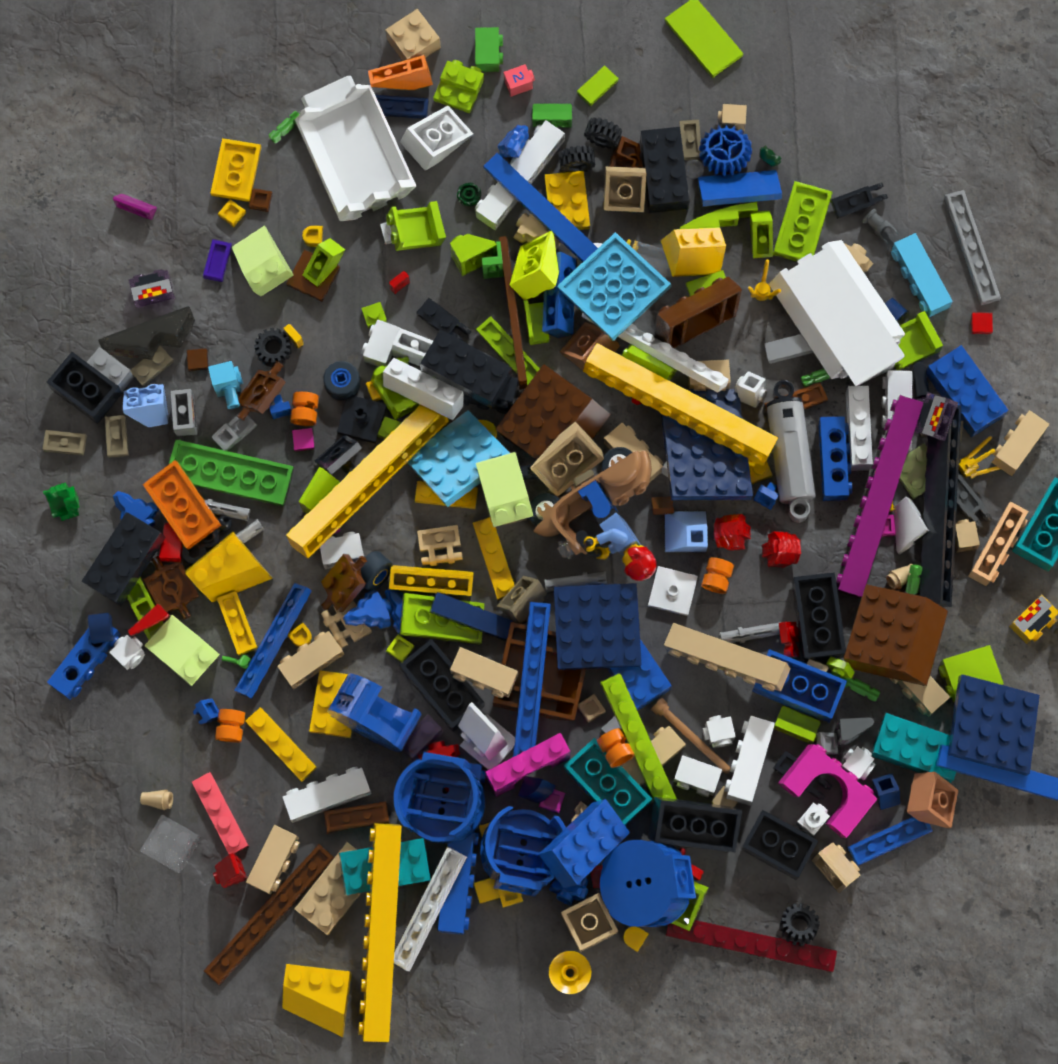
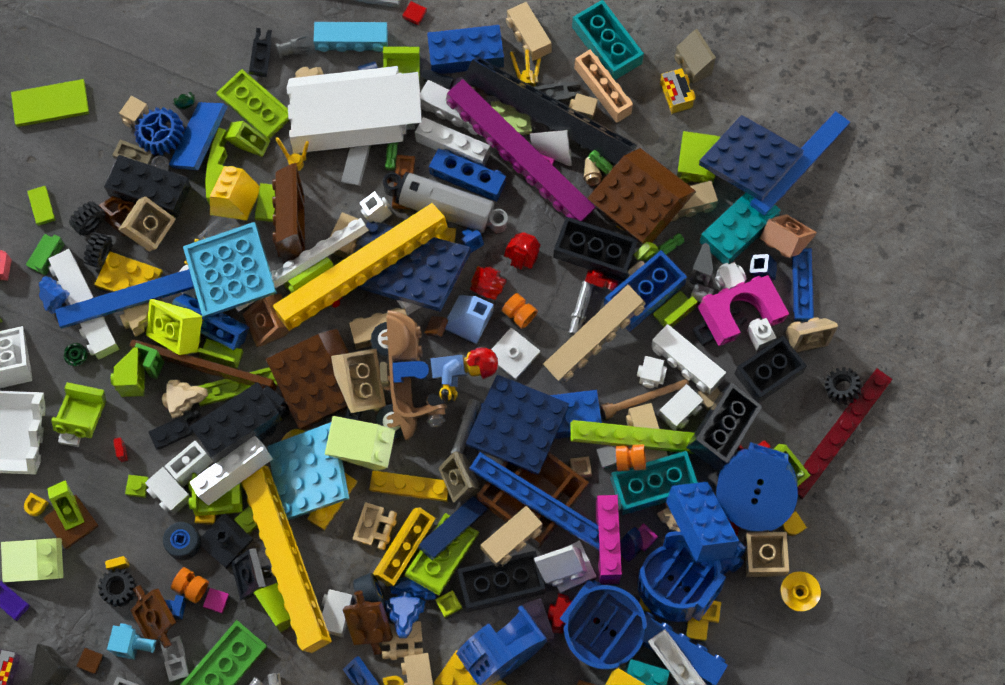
camera: 65 degrees left, 5 degrees down
(474, 309) = (181, 397): none -> tan rock
(936, 416) = (479, 75): brick -> none

